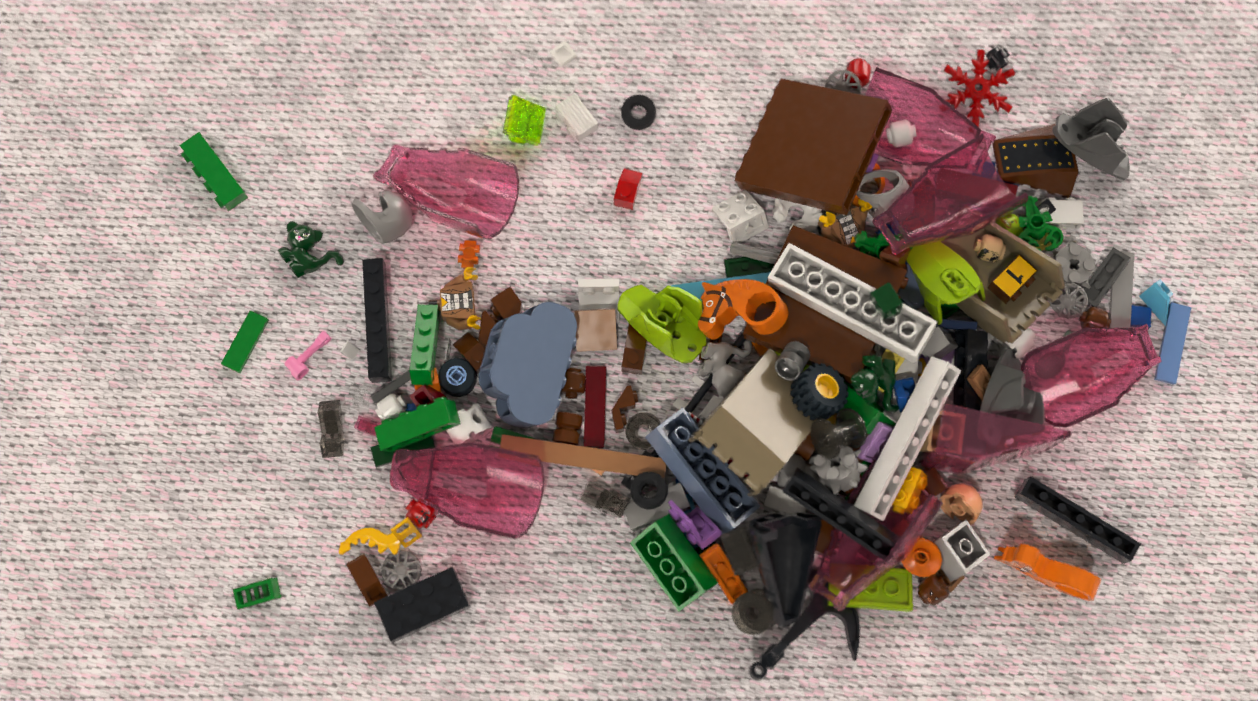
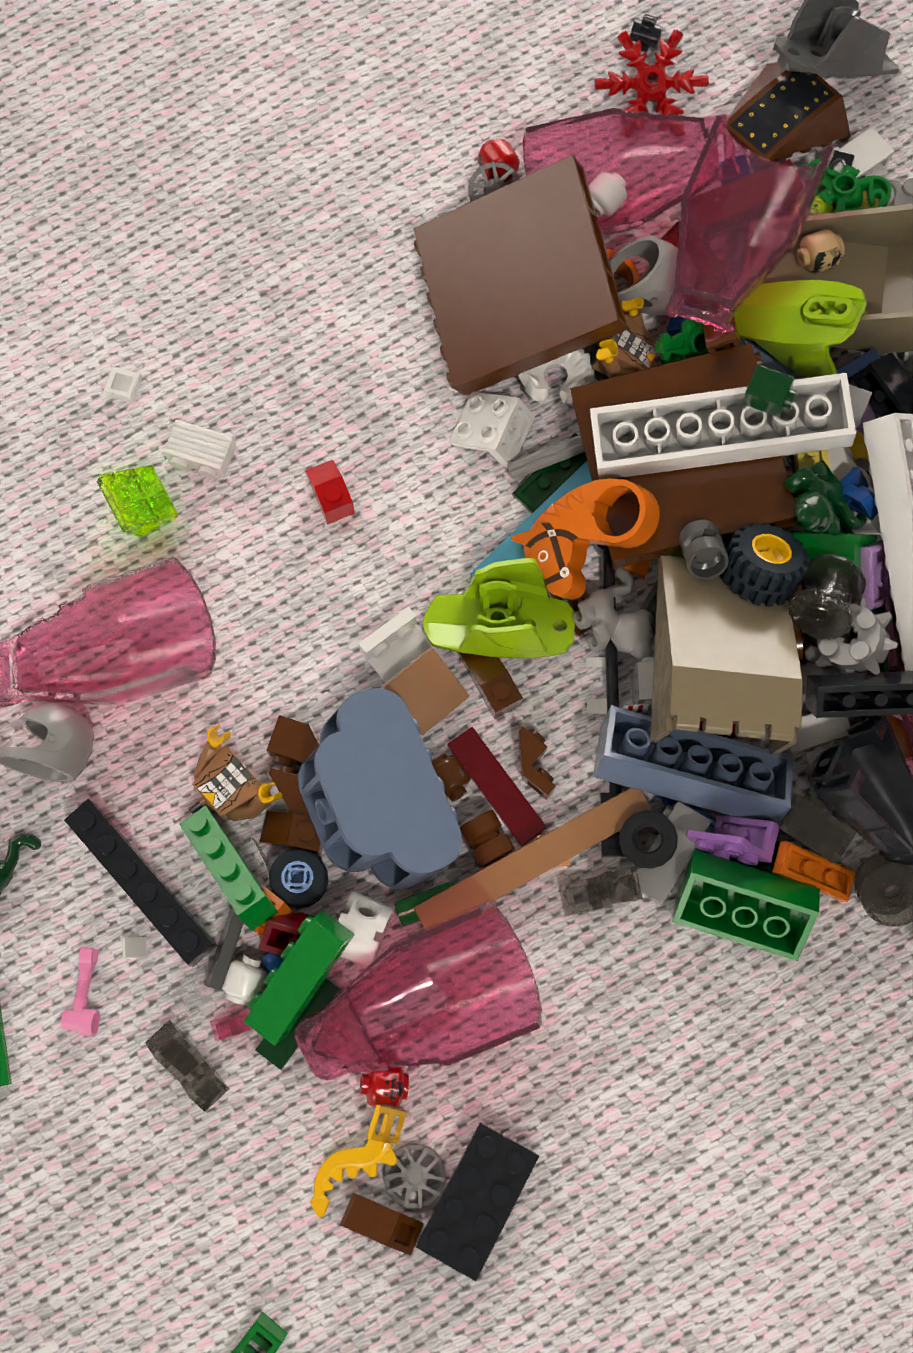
camera: 35 degrees left, 0 degrees up
(469, 249) = (197, 719): orange piece -> none
(635, 423) = (566, 760): clear smoke piece -> none
(638, 100) = (266, 373): black tyre -> none
(1013, 279) = (876, 266): yellow brick -> none

